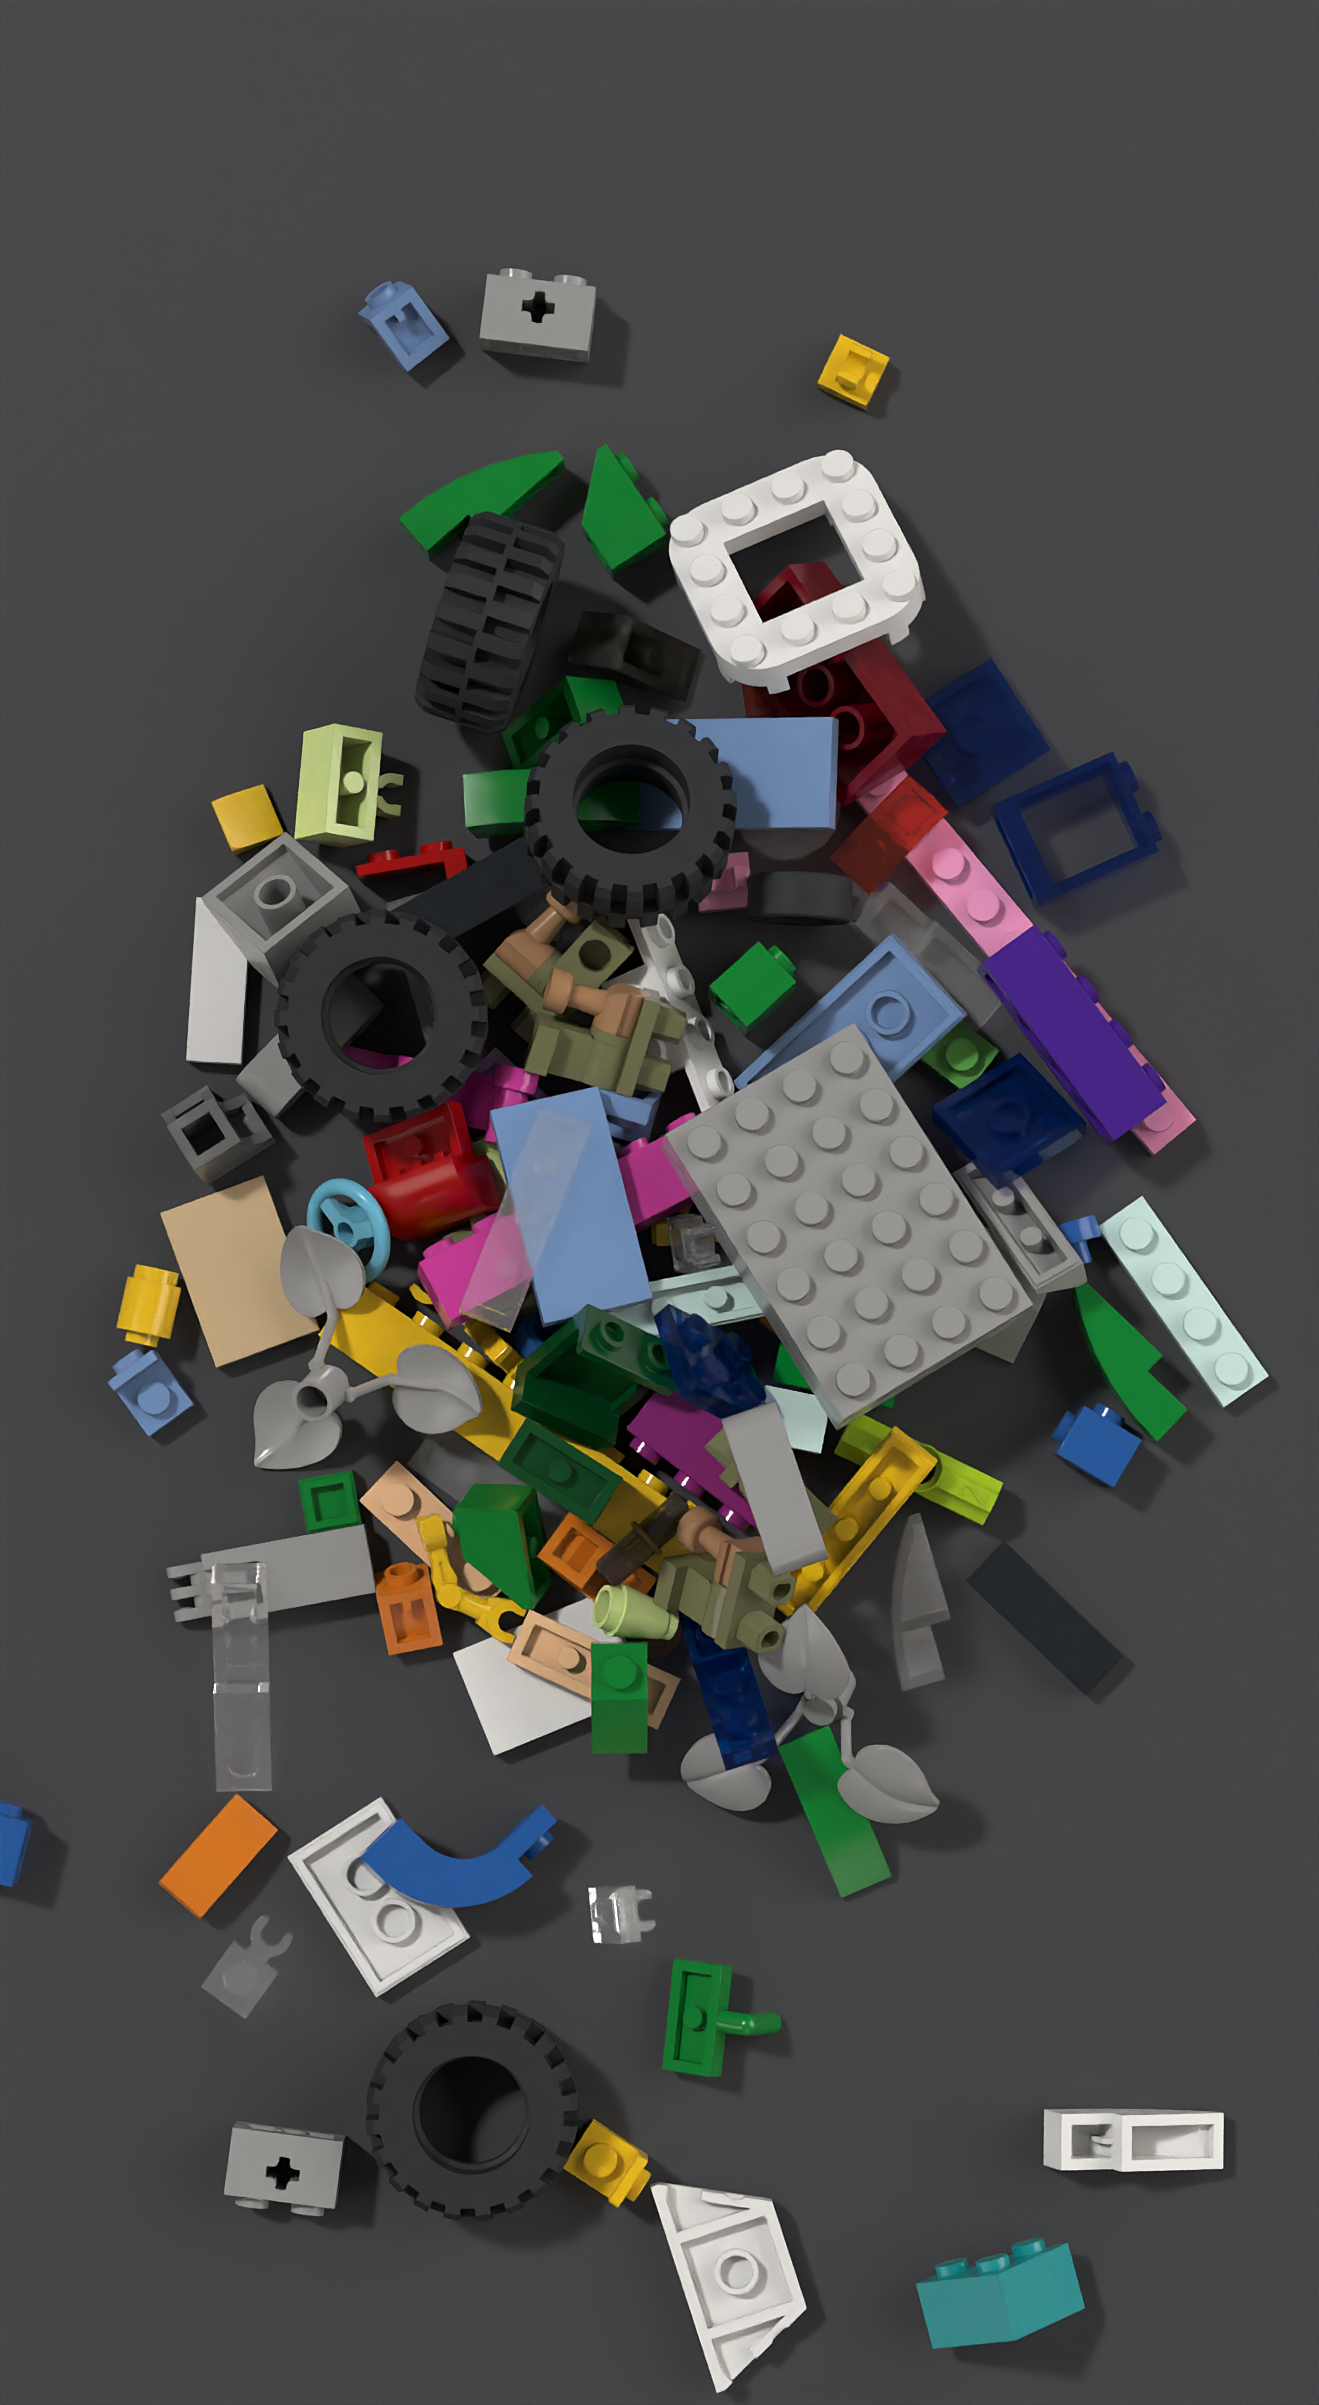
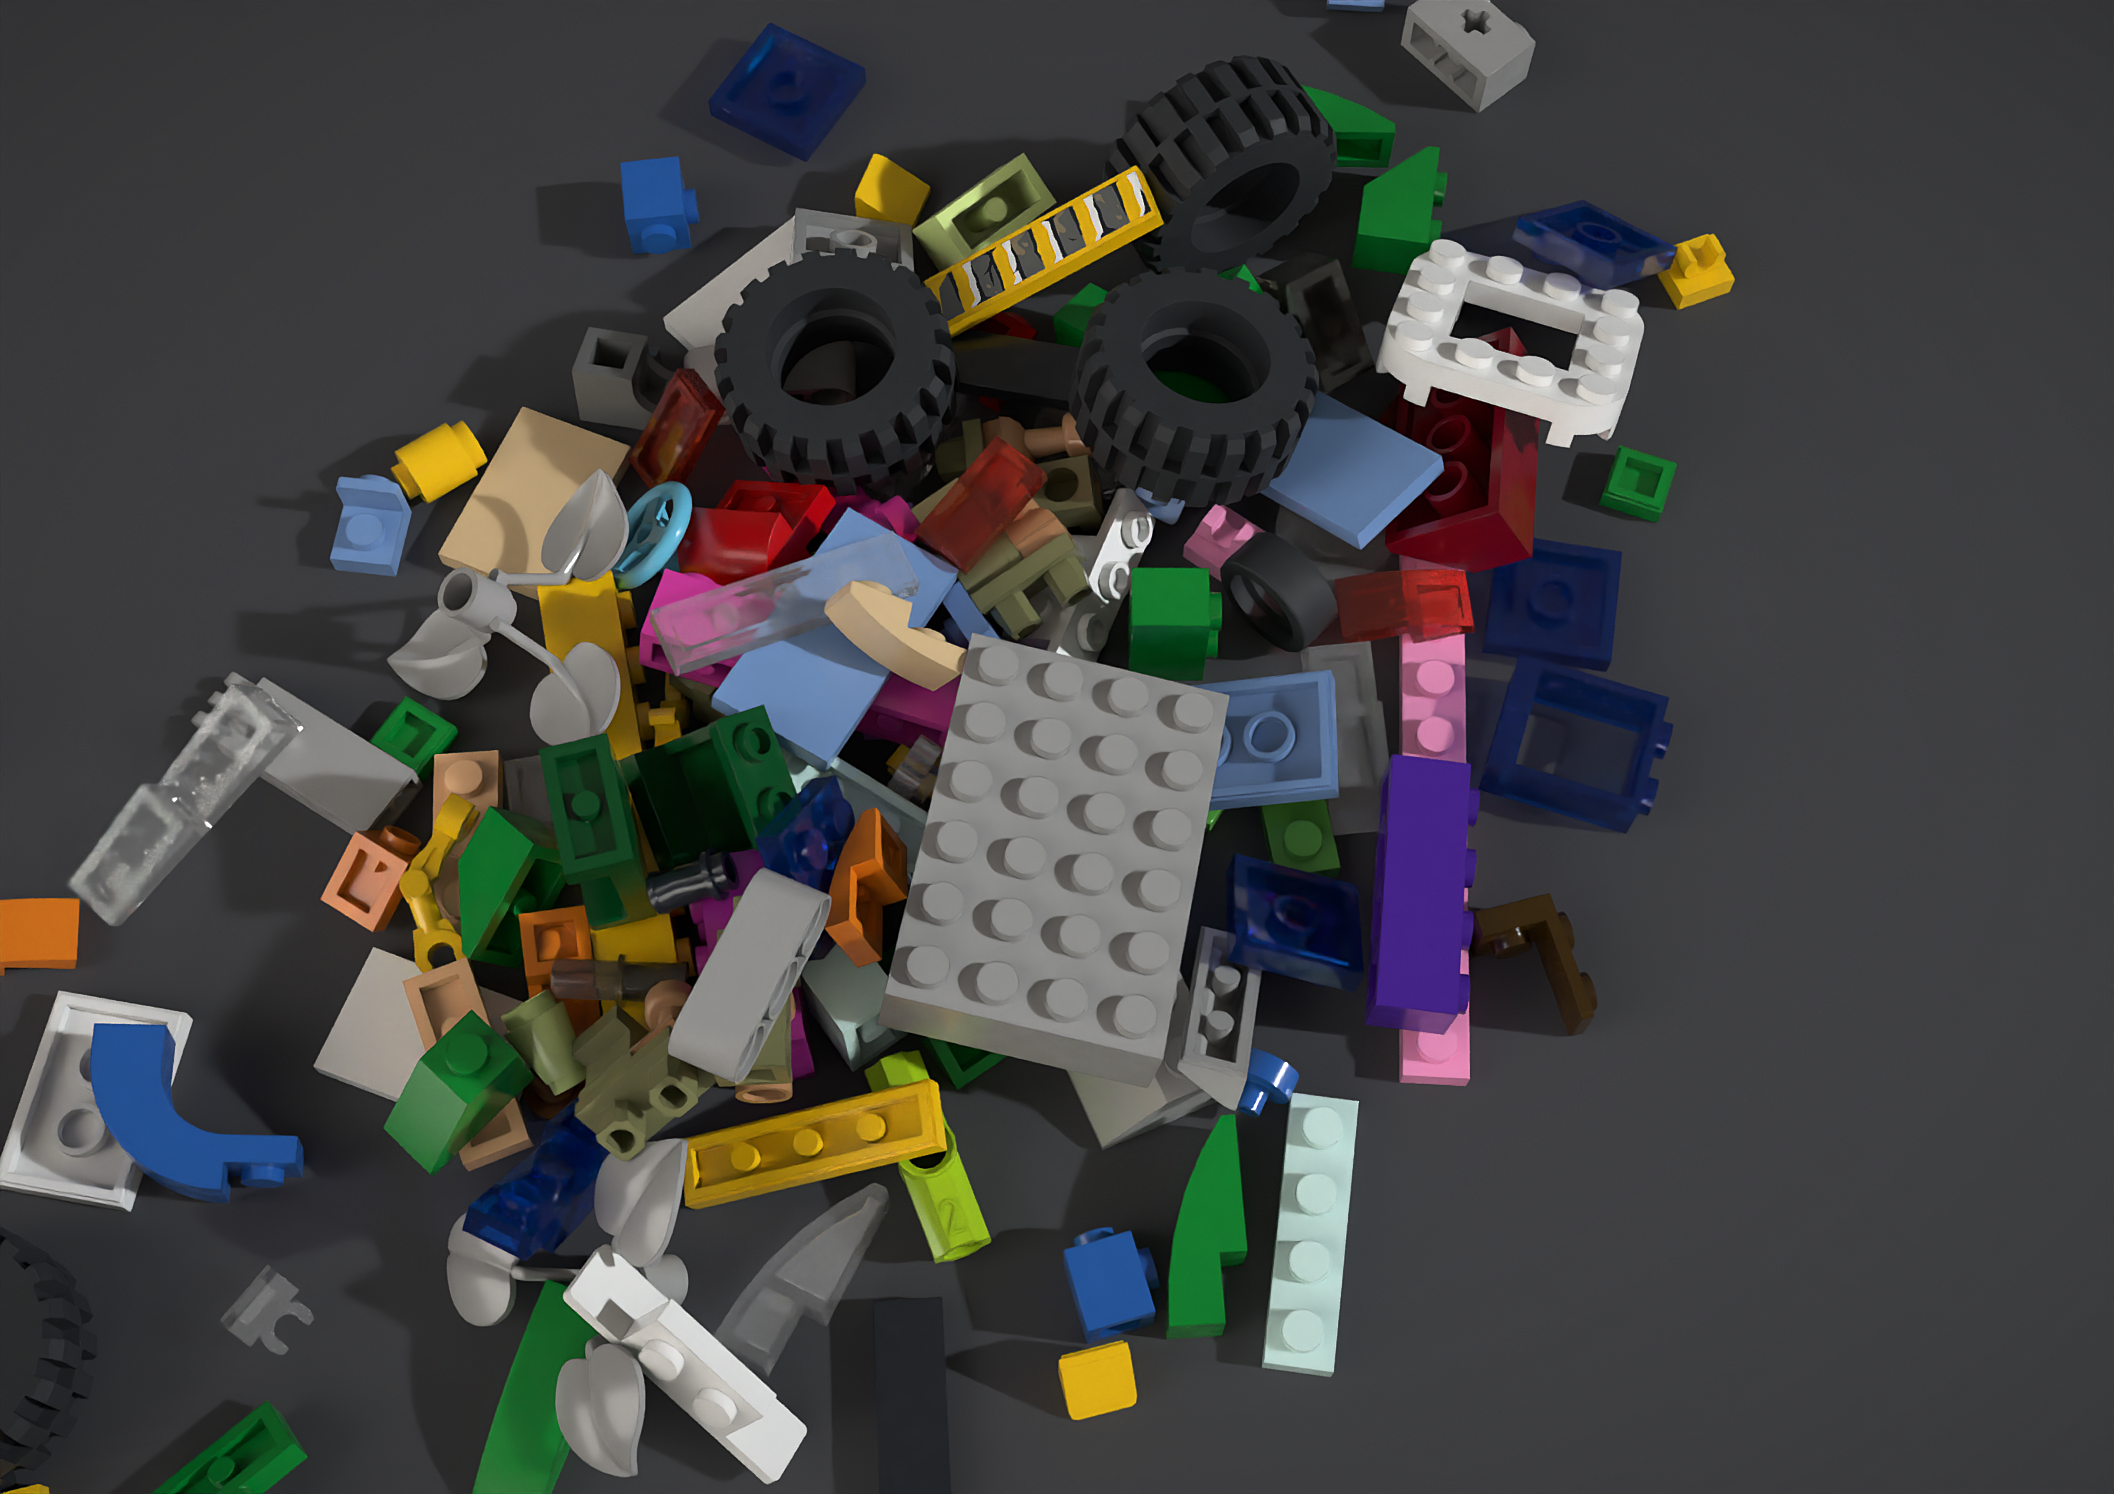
camera: 45 degrees right, 20 degrees down
(90, 801) = (787, 92): none -> clear blue plate
(97, 980) = (657, 205): none -> blue brick
(297, 1145) = (677, 430): none -> clear red tile
(440, 806) = (1046, 250): none -> tile
(574, 1031) = (981, 505): none -> clear red tile
(615, 1181) = (879, 627): none -> tan slope
(651, 1438) = (693, 881): none -> black pin
(747, 1347) = (864, 881): none -> orange slope
(778, 427) = (1593, 244): none -> clear blue plate
(904, 1718) = (687, 1363): none -> white bracket
(953, 584) = (1637, 484): none -> green tile
(1137, 1505) = (1097, 1380): none -> yellow slope
(1142, 1001) = (1510, 932): none -> dark brown bracket

